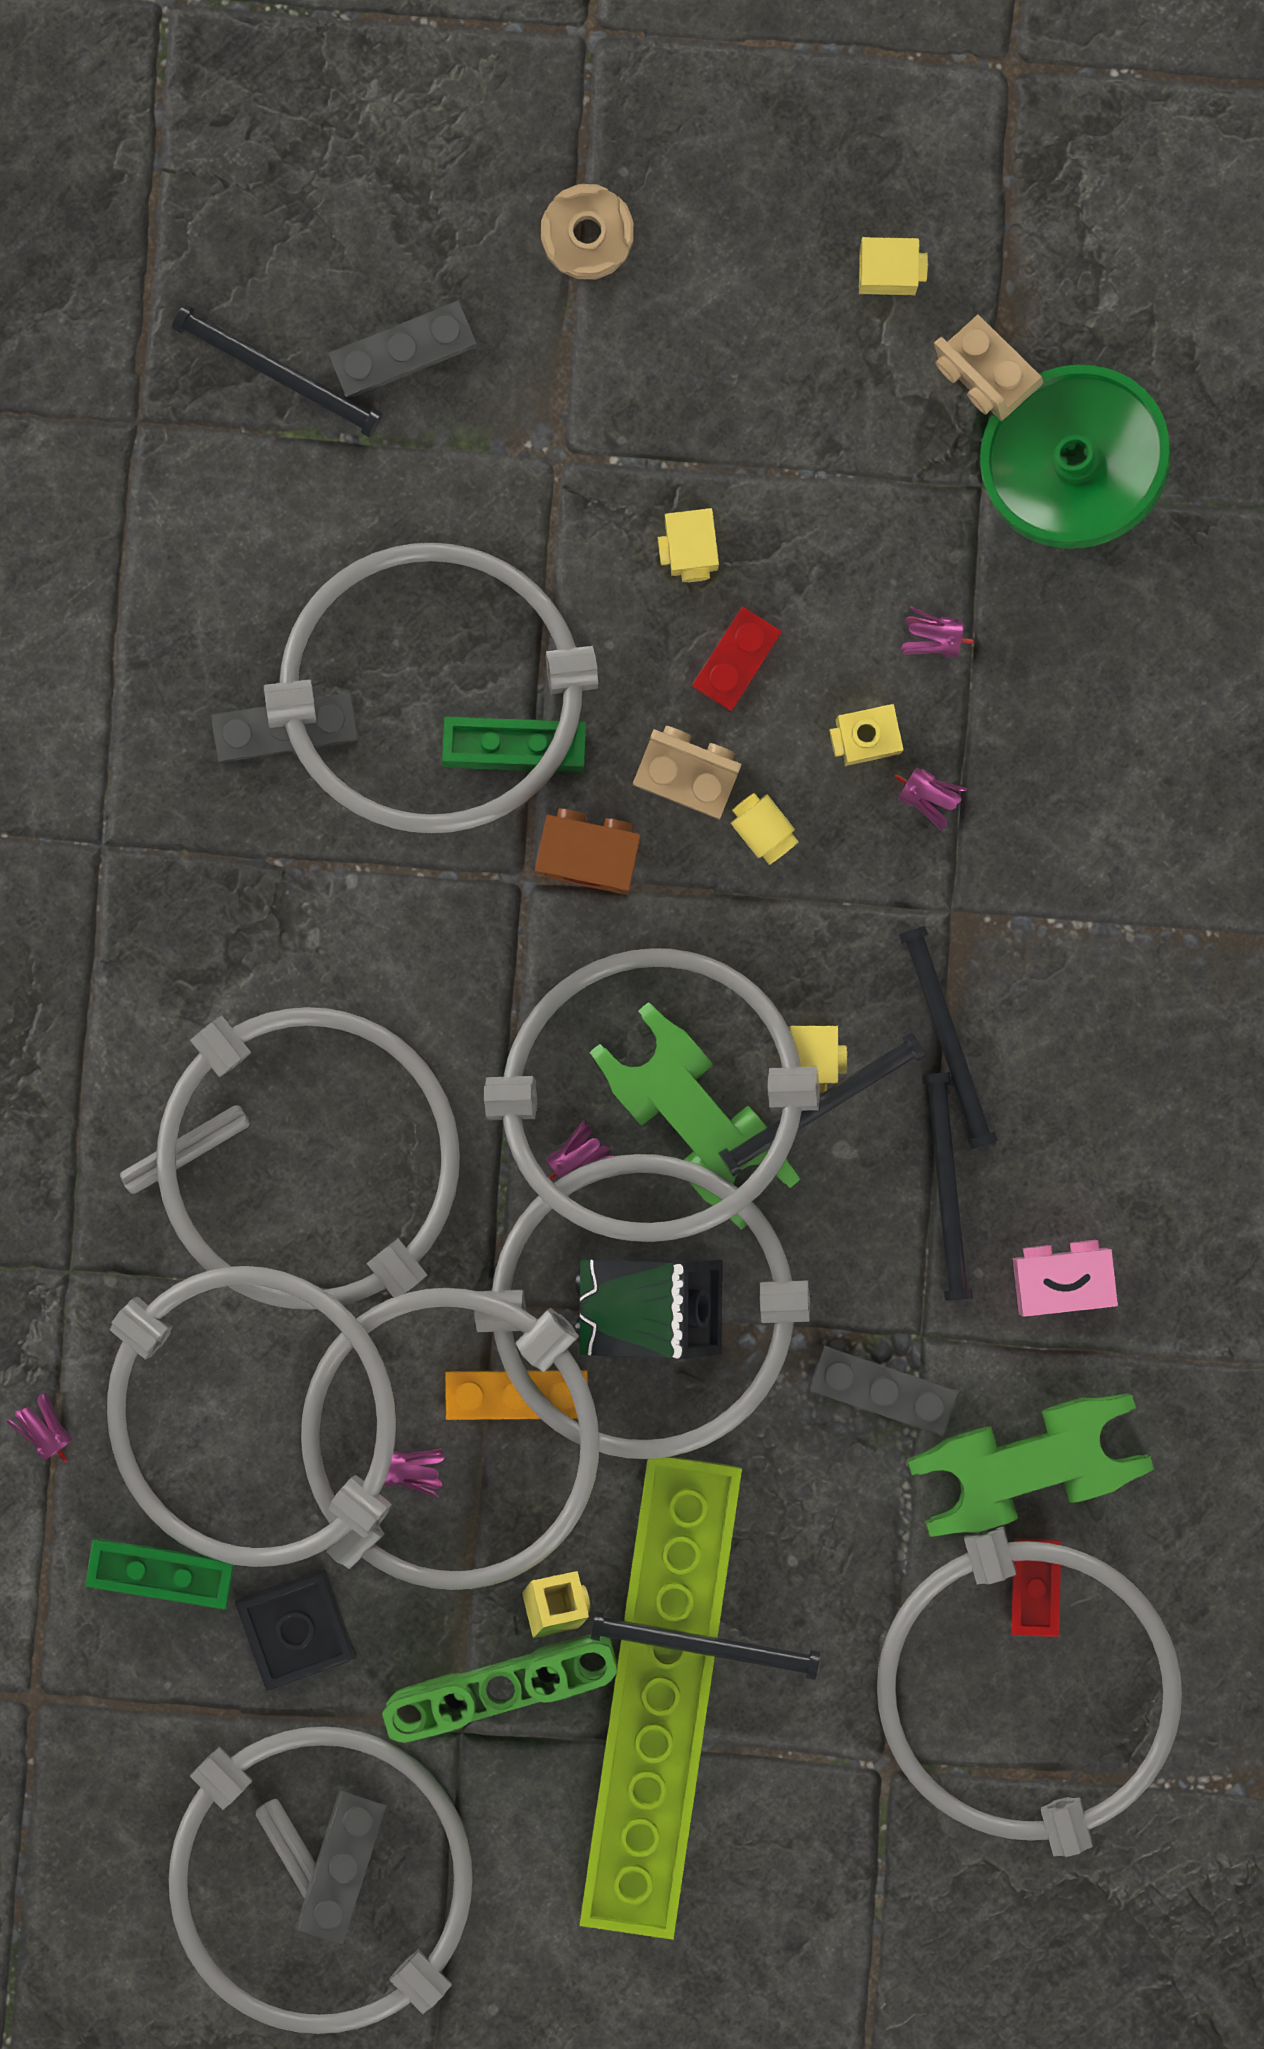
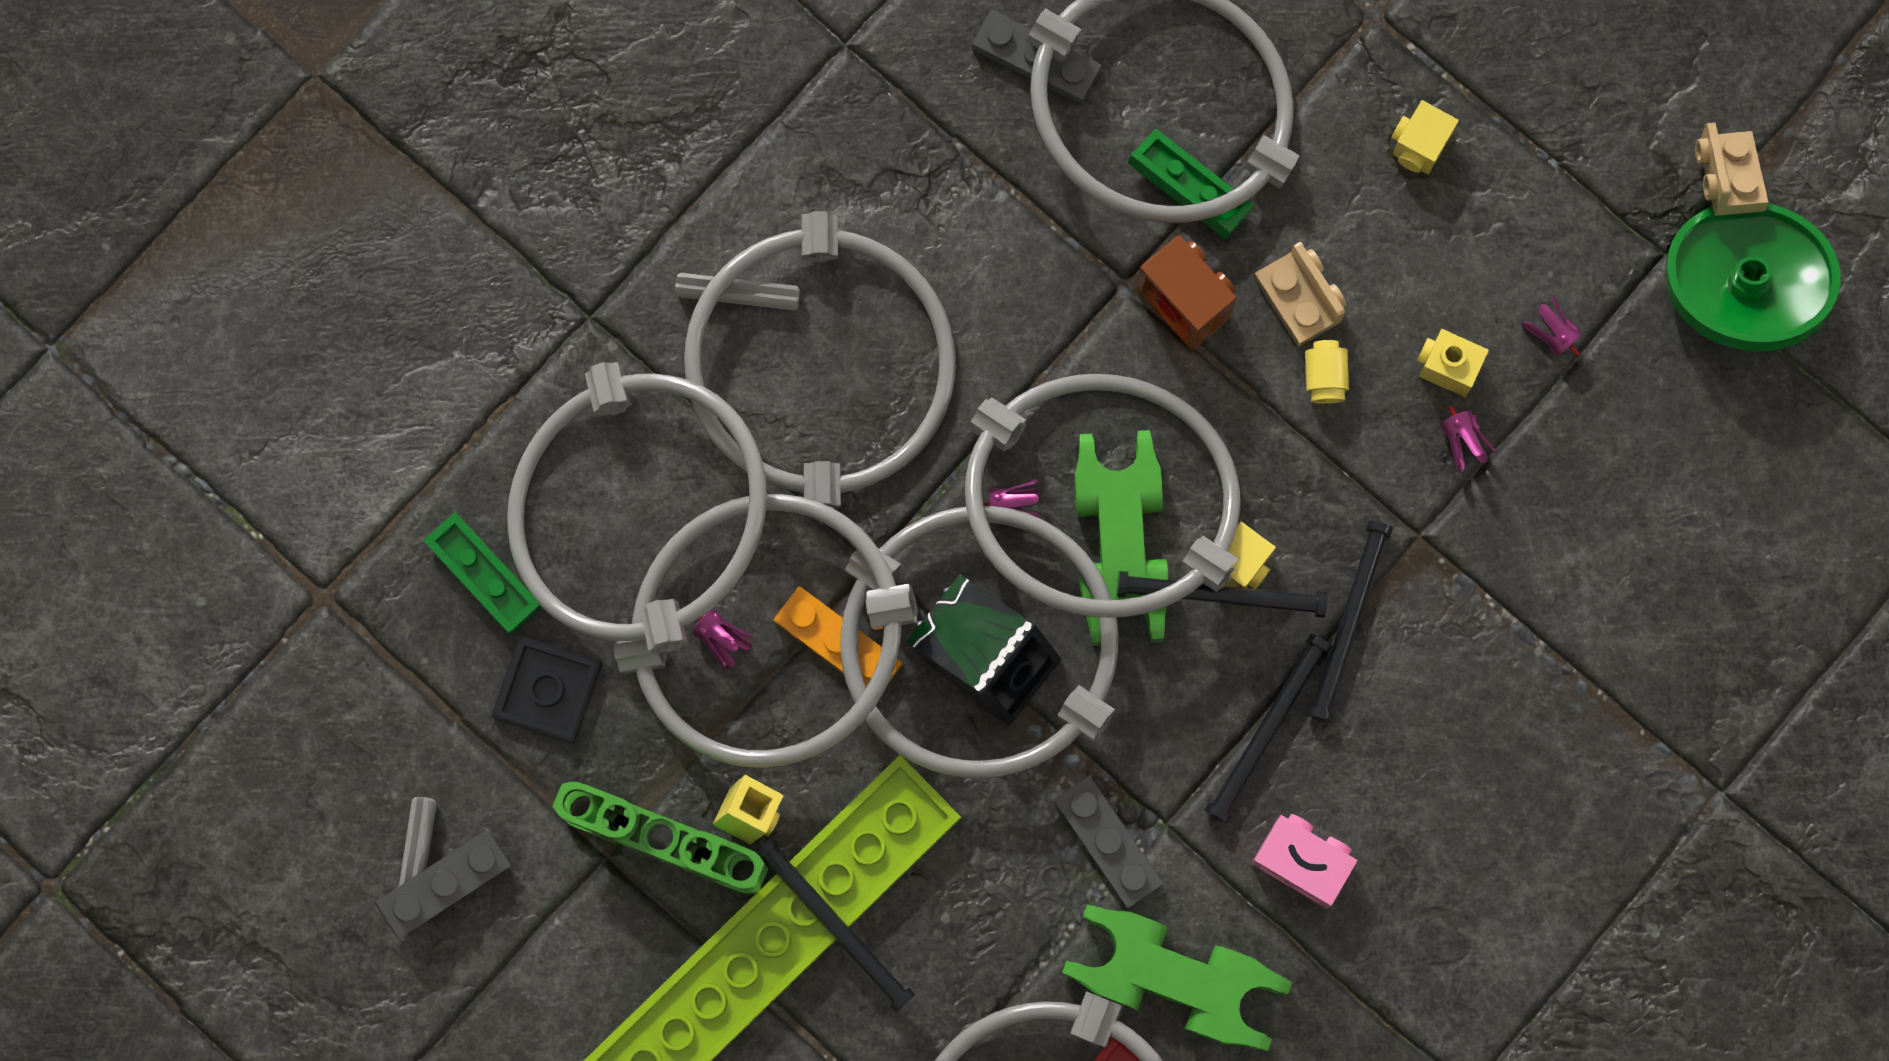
camera: 40 degrees right, 10 degrees down
(45, 1439) = (480, 419): flat silver piece -> none
(417, 1978) = (432, 1011): light grey piece -> none
(736, 659) = (1396, 243): red plate -> none
(891, 266) = (1713, 51): light yellow brick -> none

